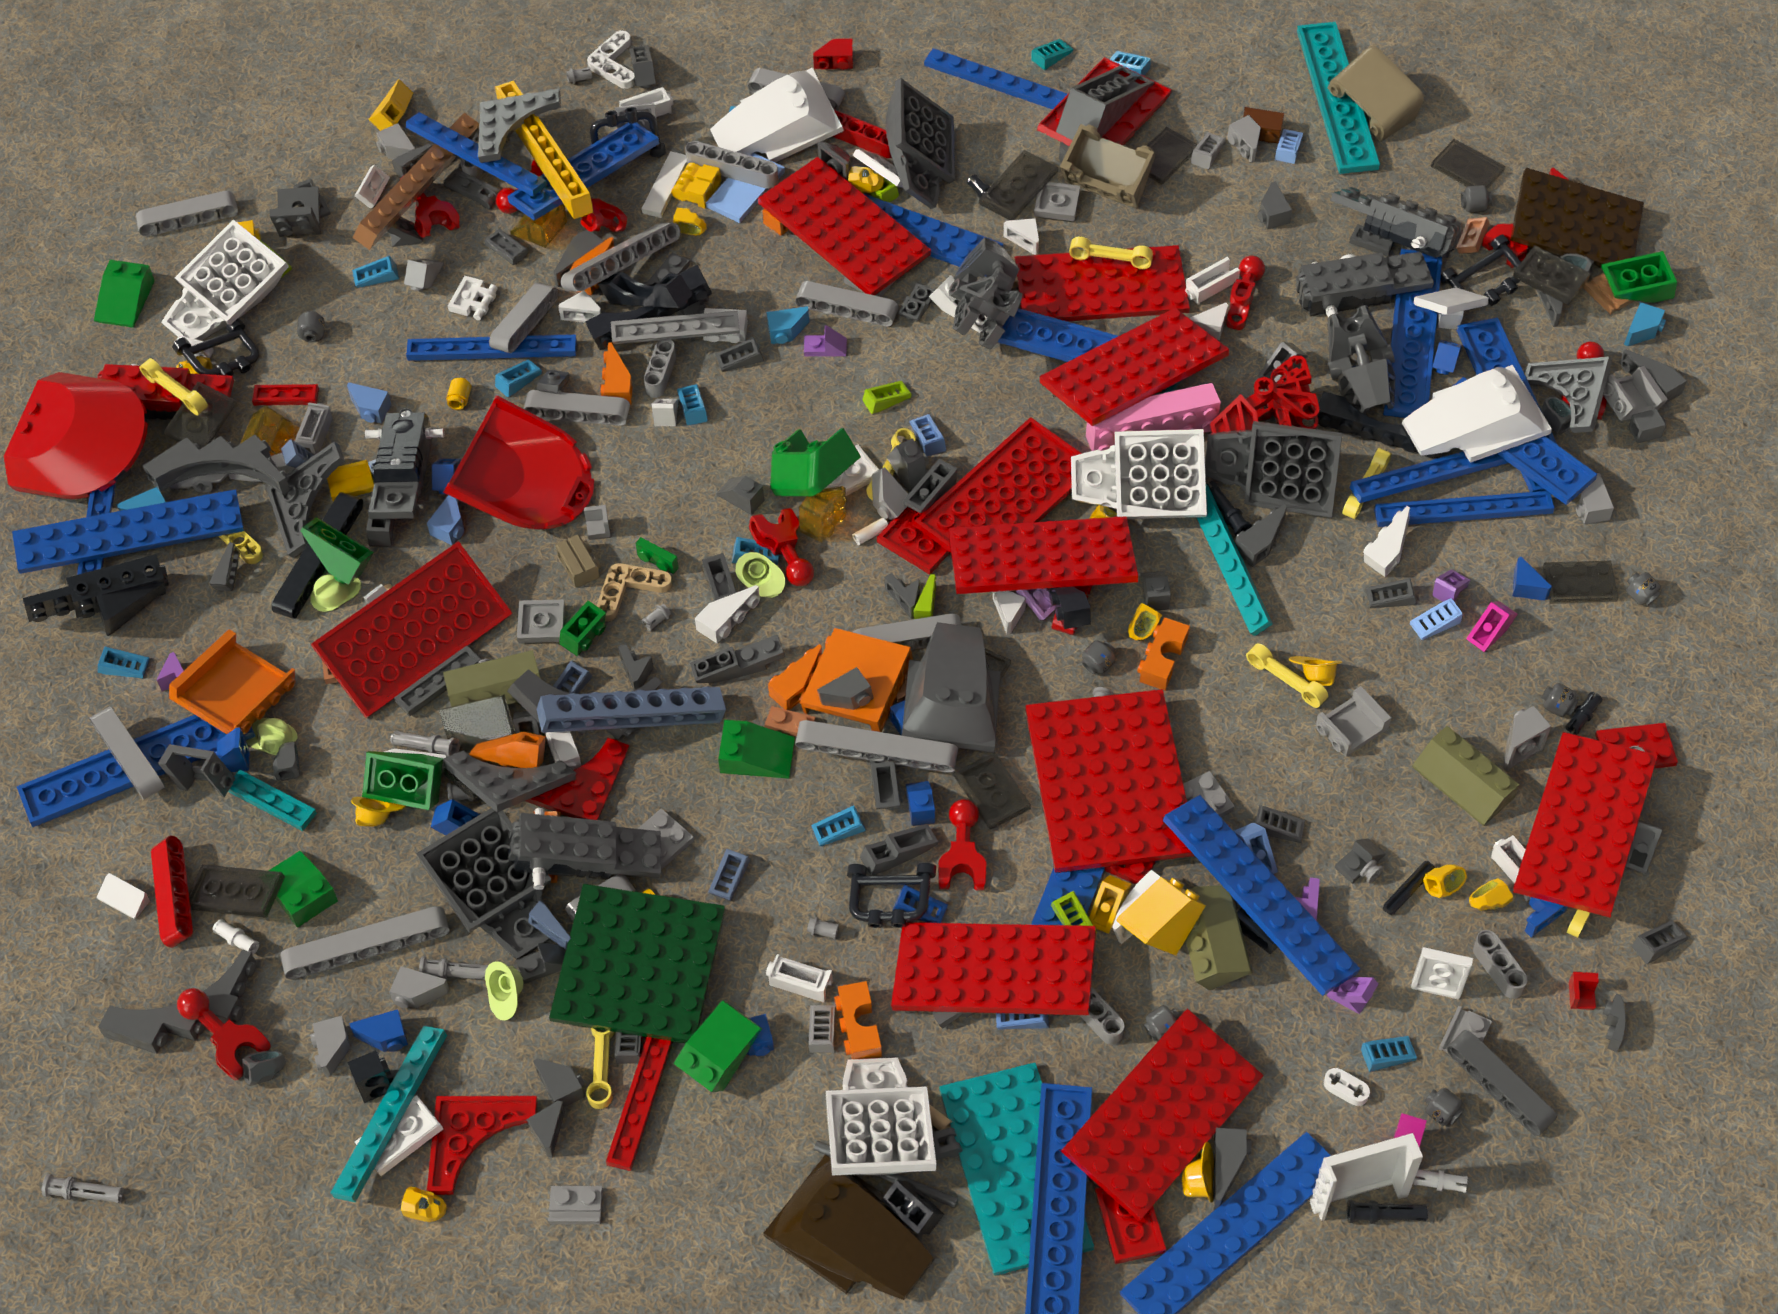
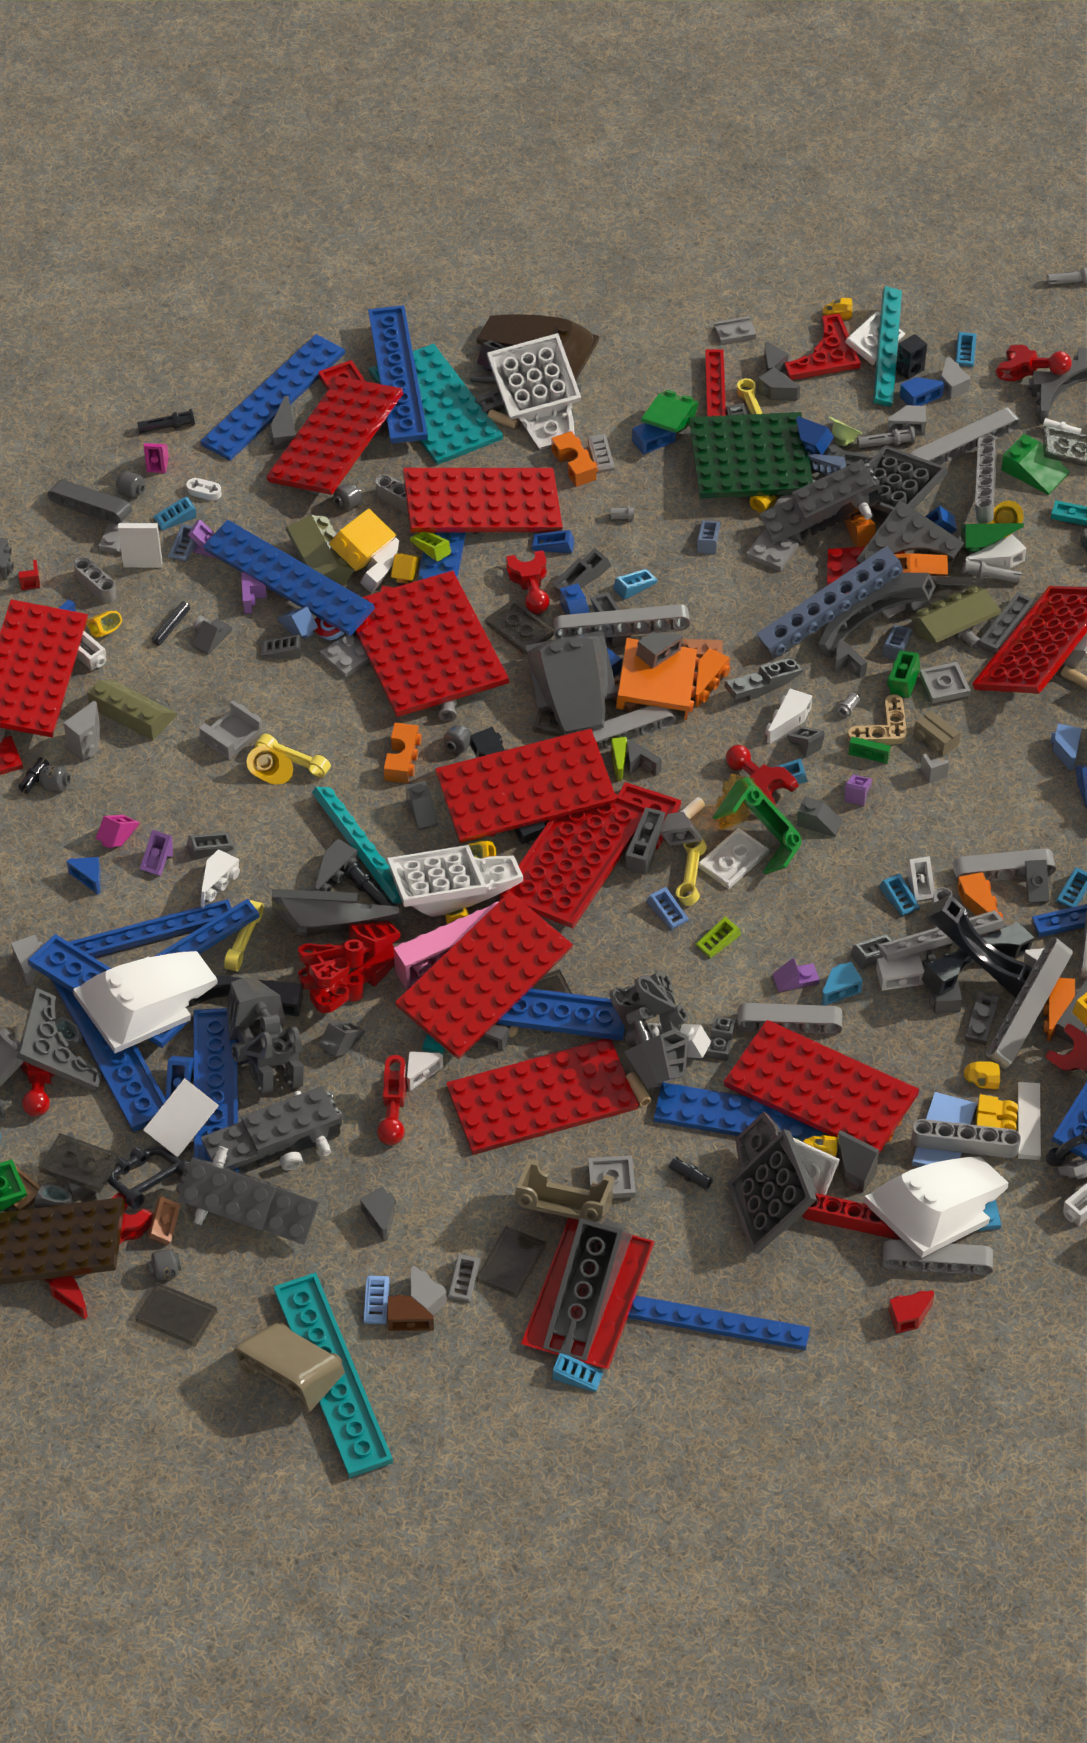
camera: 165 degrees right, 5 degrees down
(262, 1066) = (993, 357): dark grey rock -> none
(285, 1112) = (969, 338): none -> dark azure slope
(371, 844) = (985, 479): none -> light grey beam
(523, 470) = (1021, 780): red windscreen -> none
(552, 958) = (814, 435): none -> blue slope
(686, 512) = (857, 789): none -> medium lavender slope
(755, 750) = (723, 618): green slope -> none
(759, 570) = (775, 754): yellowish green piece -> none
(799, 978) = (627, 477): white window -> none
(898, 917) = (554, 548): black bar -> none
(908, 463) = (675, 862): dark grey slope -> none
(1018, 185) = (656, 1176): clear smoke tile -> none
(1023, 233) = (635, 1128): white slope -> none
(1038, 54) = (677, 1358): teal slope -> none
(1111, 252) = (507, 1109): light yellow piece -> none
(1143, 622) = (424, 772): rock -> none
(1198, 1175) = (301, 410): yellow piece -> none
(1211, 281) = (428, 1111): white window -> none
(1367, 1169) = (184, 408): white panel -> none
(1372, 1017) = (183, 531): none -> sand blue slope
(1441, 1180) = (127, 445): white pin -> none
(1445, 880) = (142, 628): yellow rock -> none
(1447, 609) = (164, 824): light blue slope -> none
(1580, 582) = (39, 888): clear smoke plate -> none

